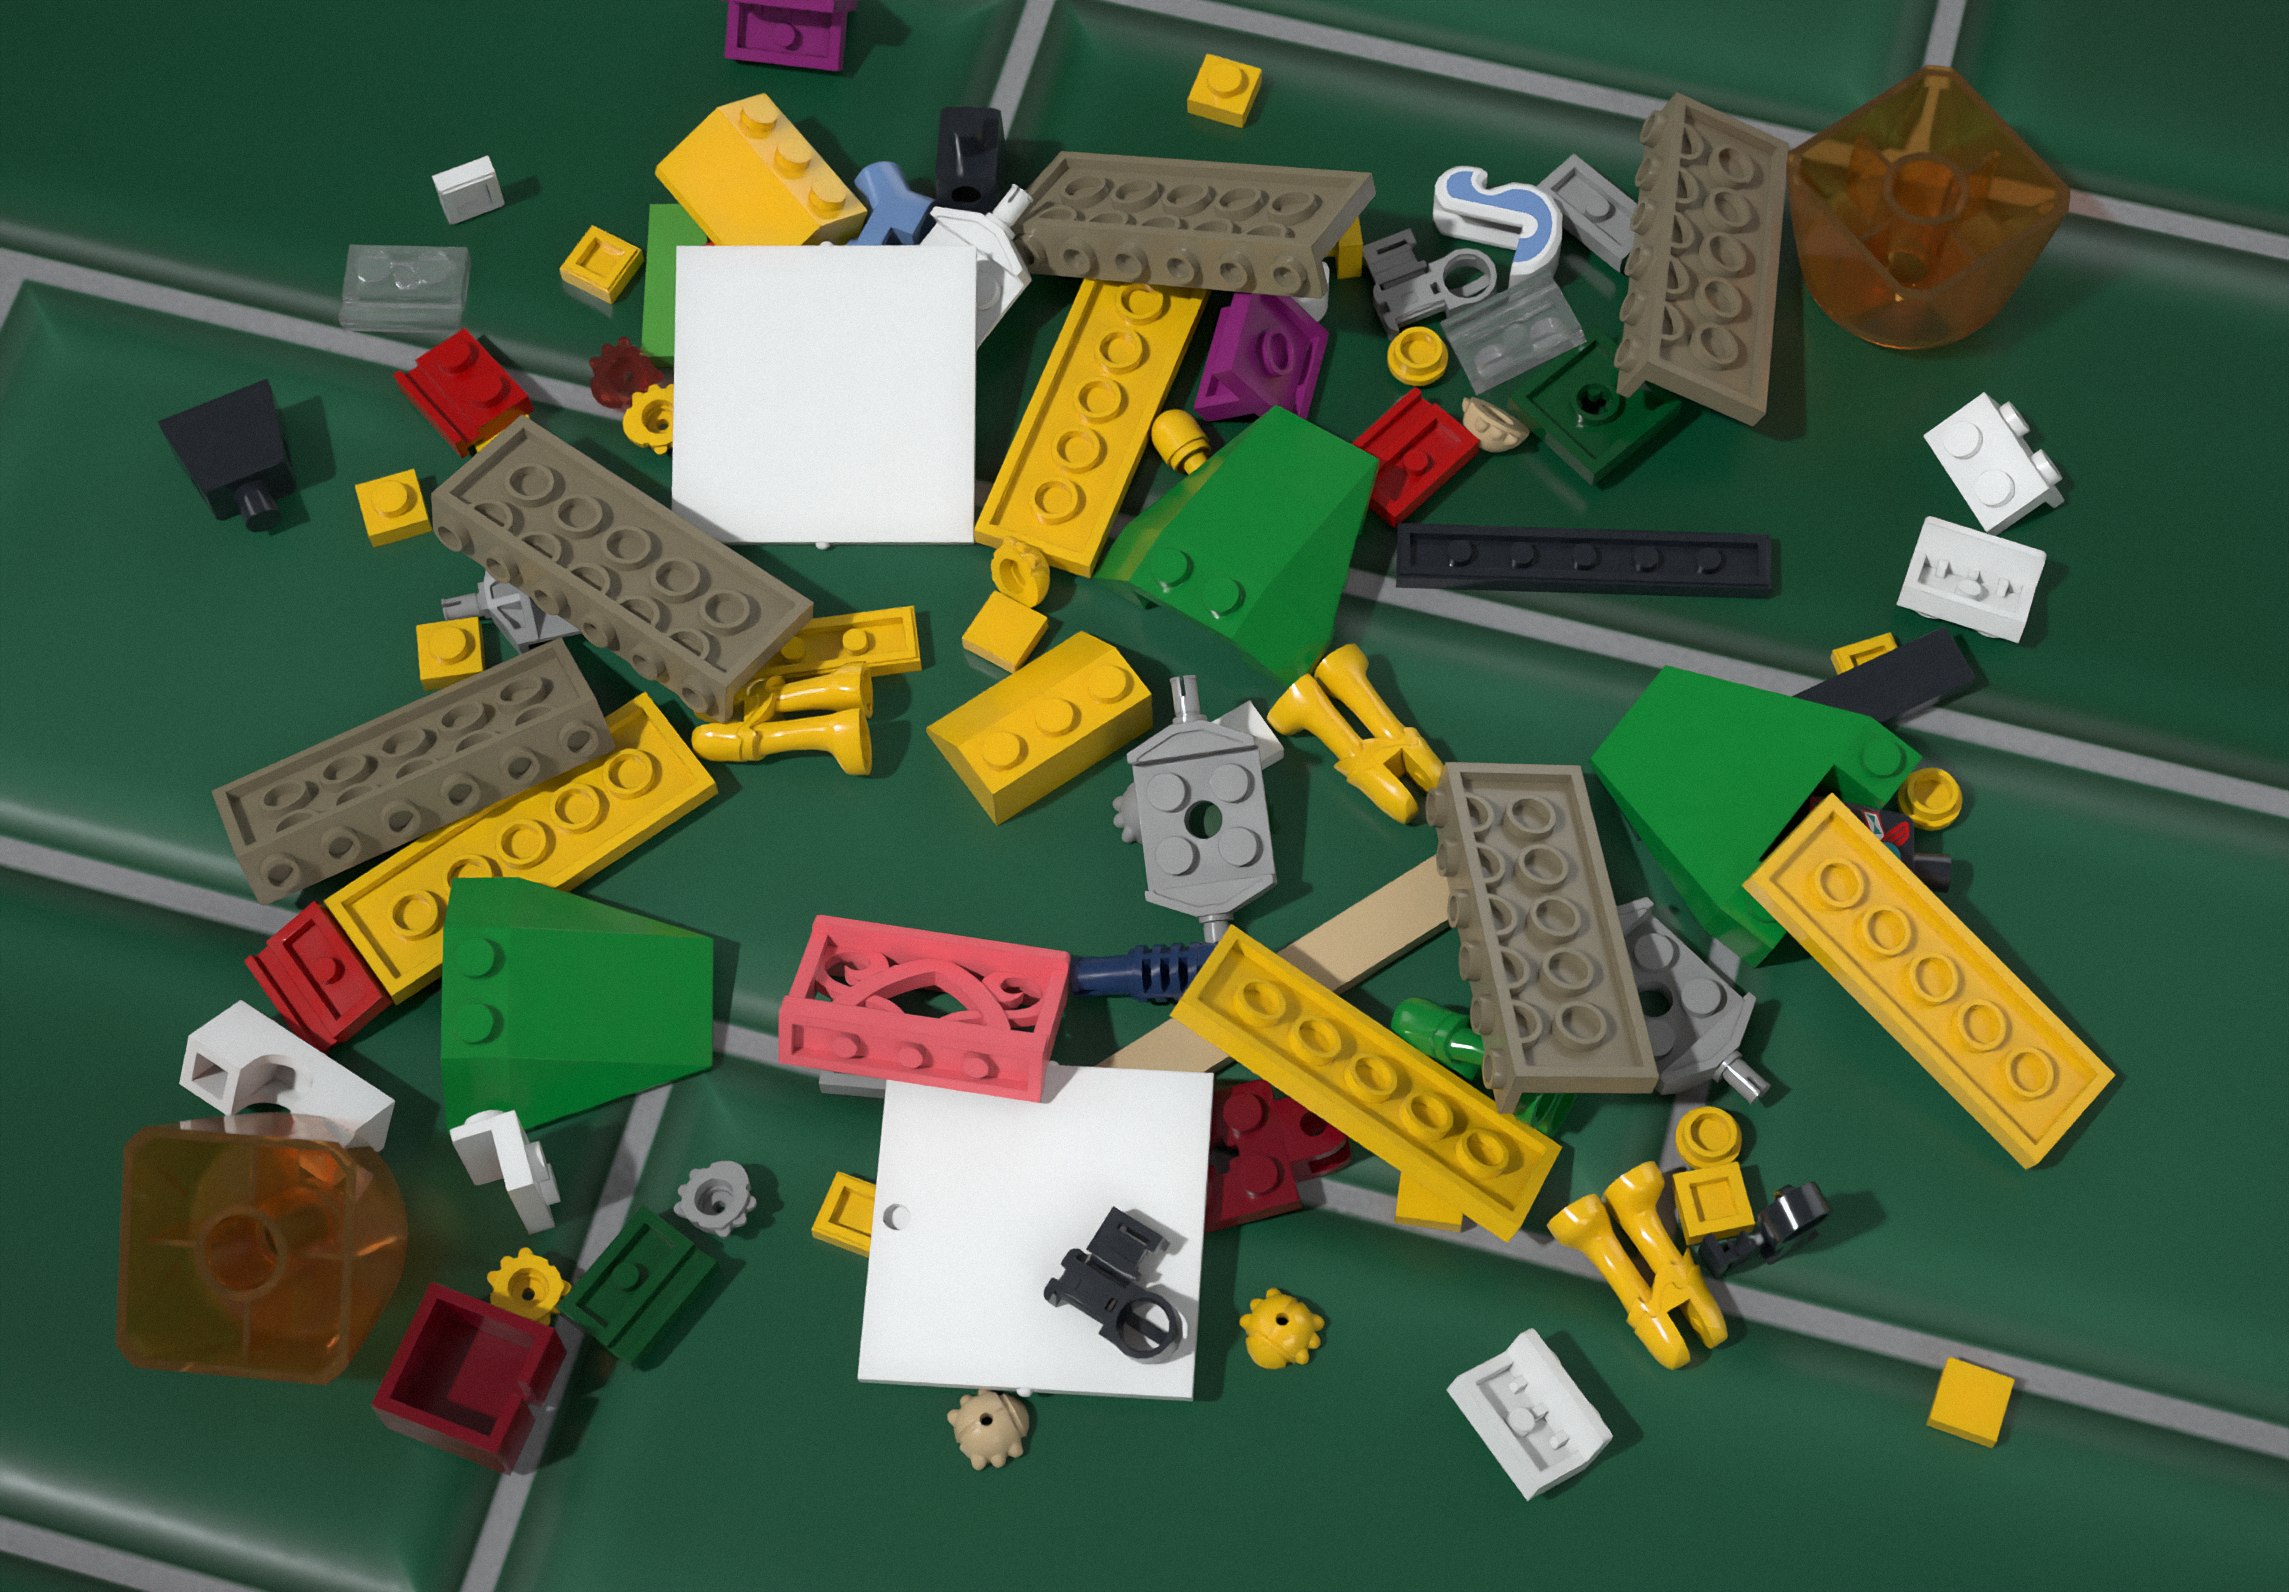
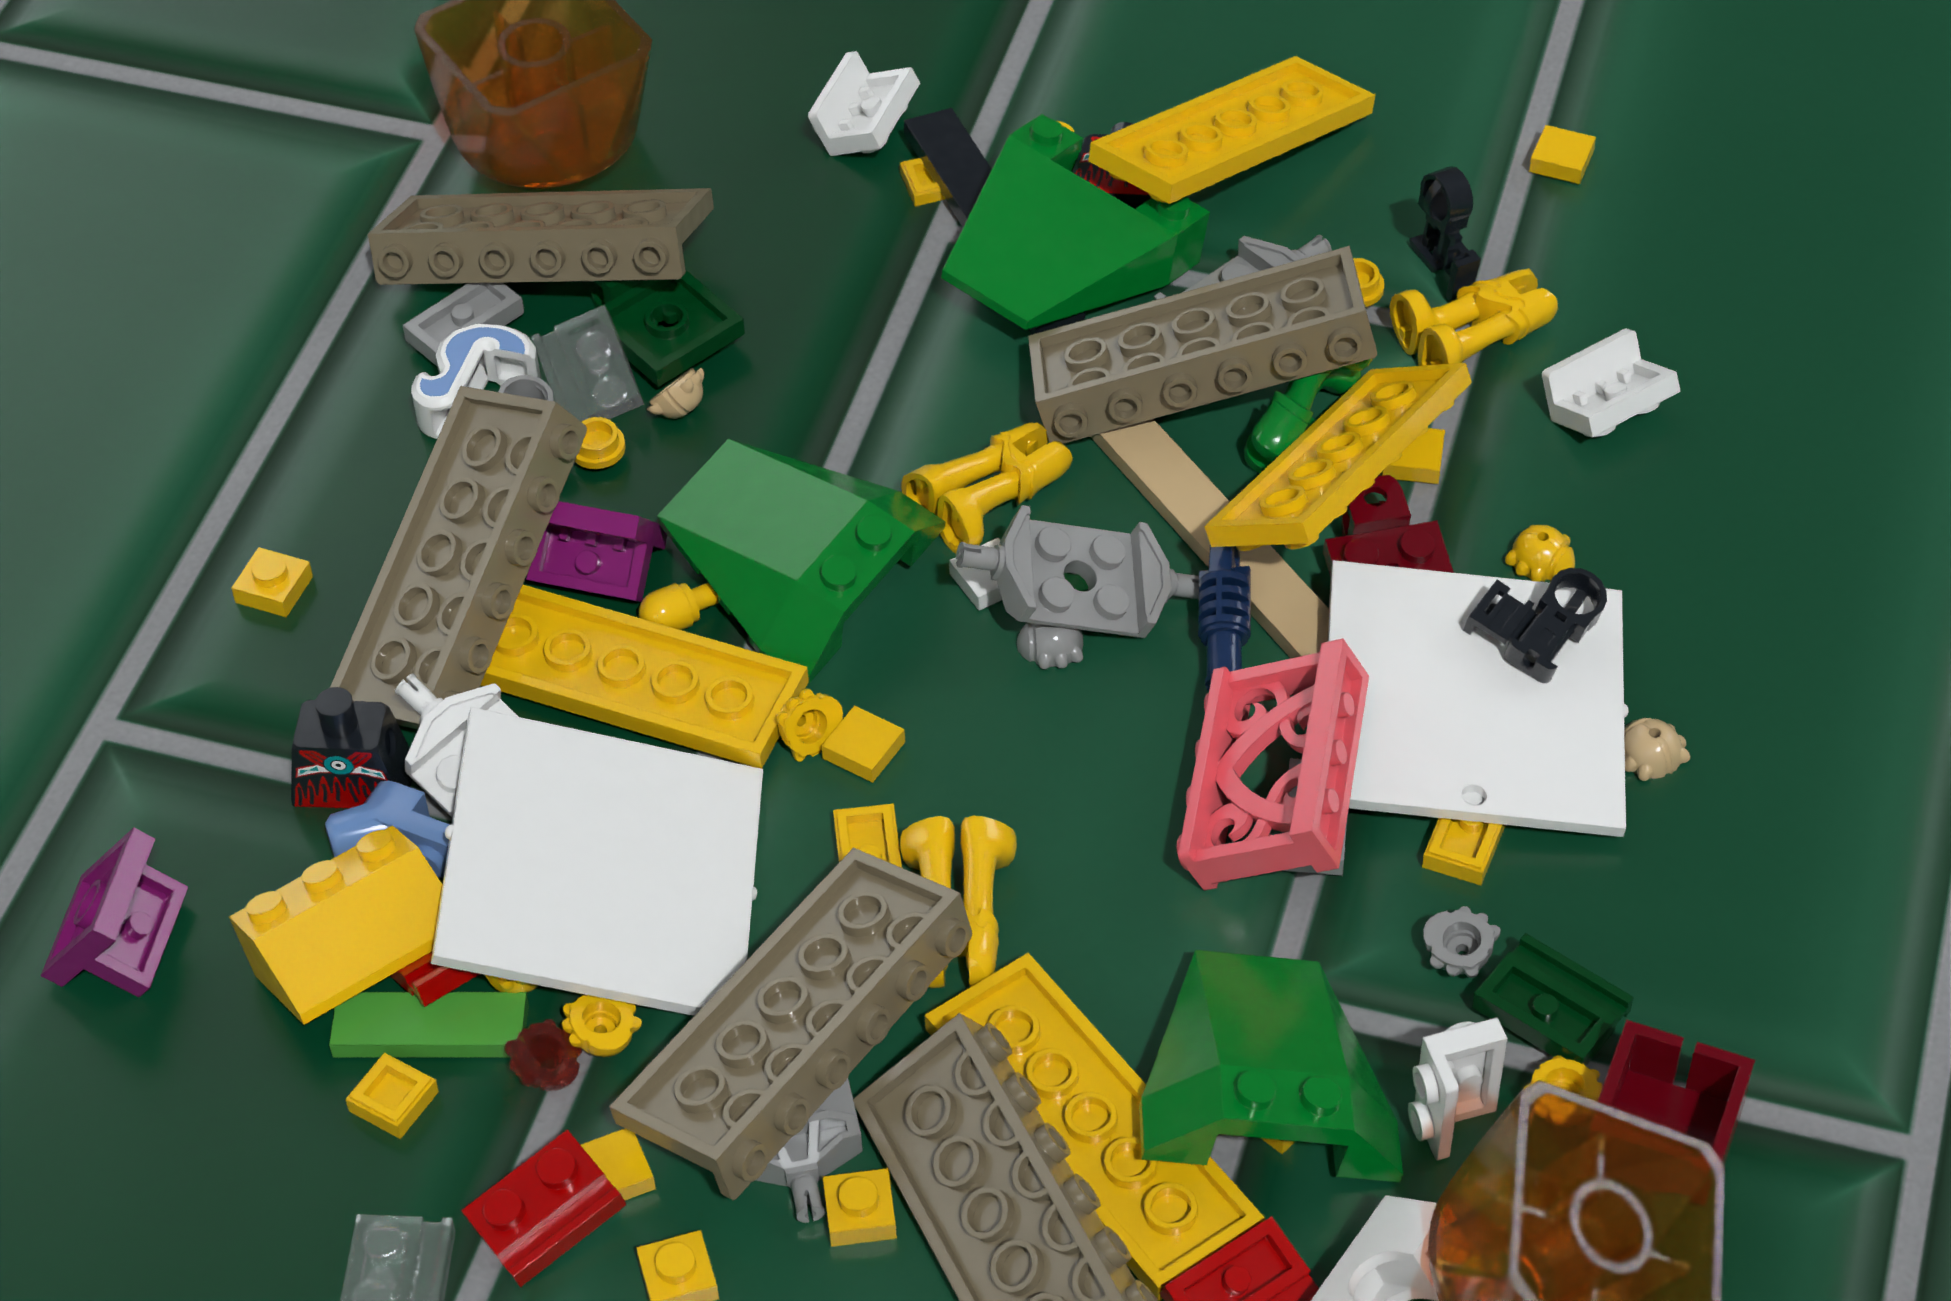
camera: 90 degrees left, 15 degrees down
(468, 190) = (286, 1211): white tile -> none
(1044, 724) = (966, 705): yellow slope -> none
(1417, 454) = (690, 439): red plate -> none
(1583, 561) = (816, 344): black tile -> none
(1712, 1202) = (1418, 273): yellow plate -> none
(1993, 463) = (750, 90): white bracket -> none

